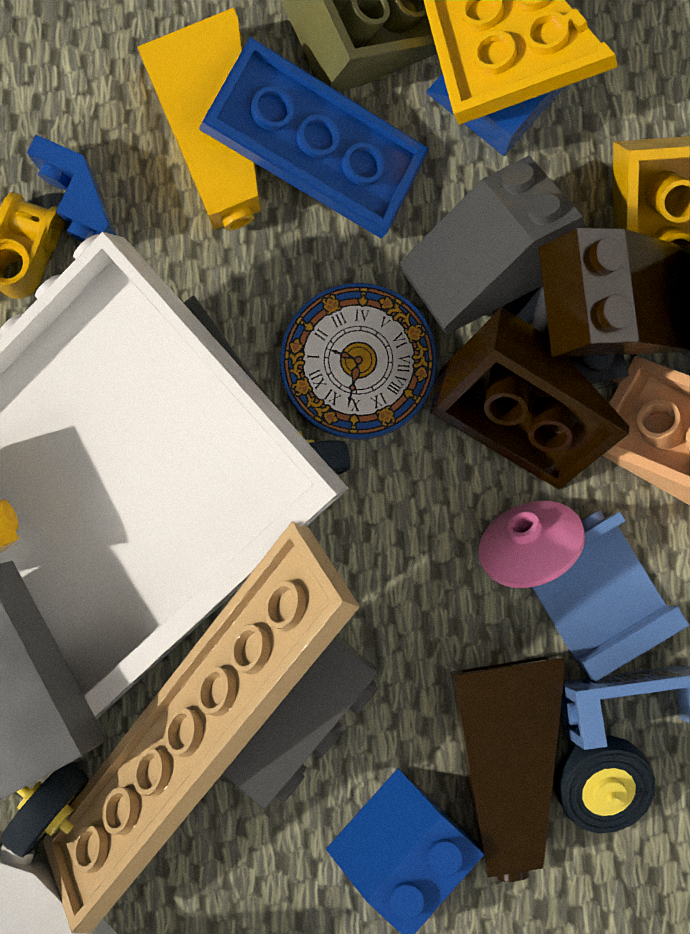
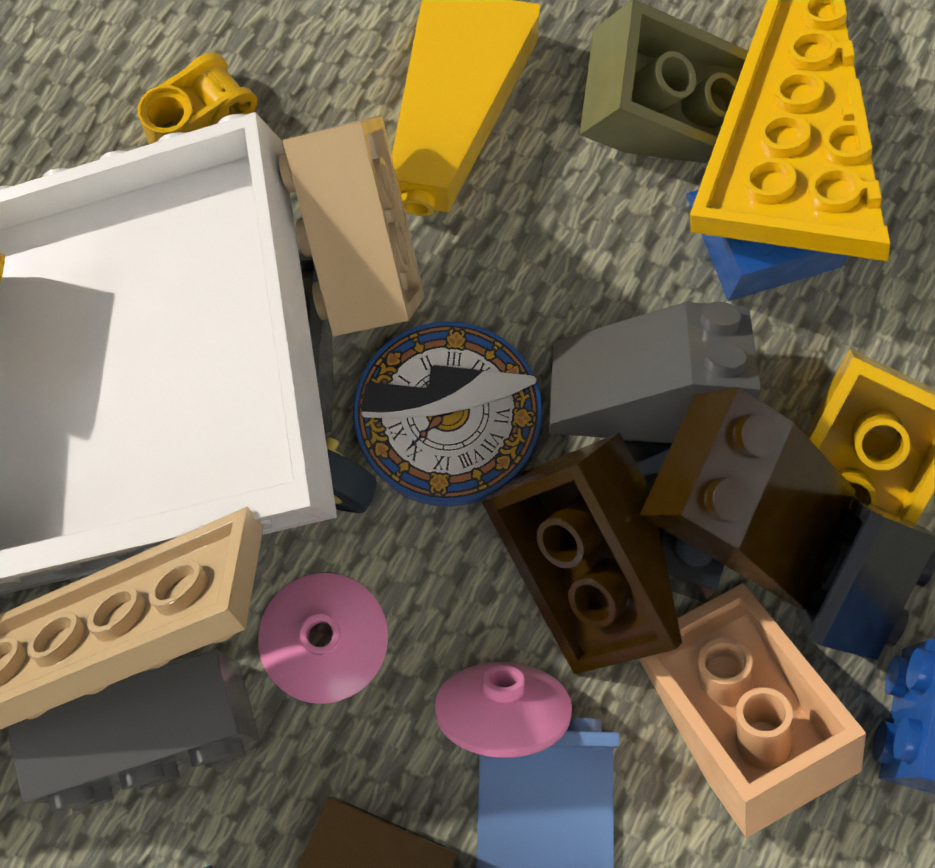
camera: 30 degrees right, 10 degrees down
(82, 203) = (285, 92): blue slope -> none
(214, 268) = (353, 225): none -> tan slope
(314, 138) = (541, 169): blue tile -> none
(350, 347) = (448, 391): none -> sticker
(401, 562) = (343, 664): none -> bright pink dish

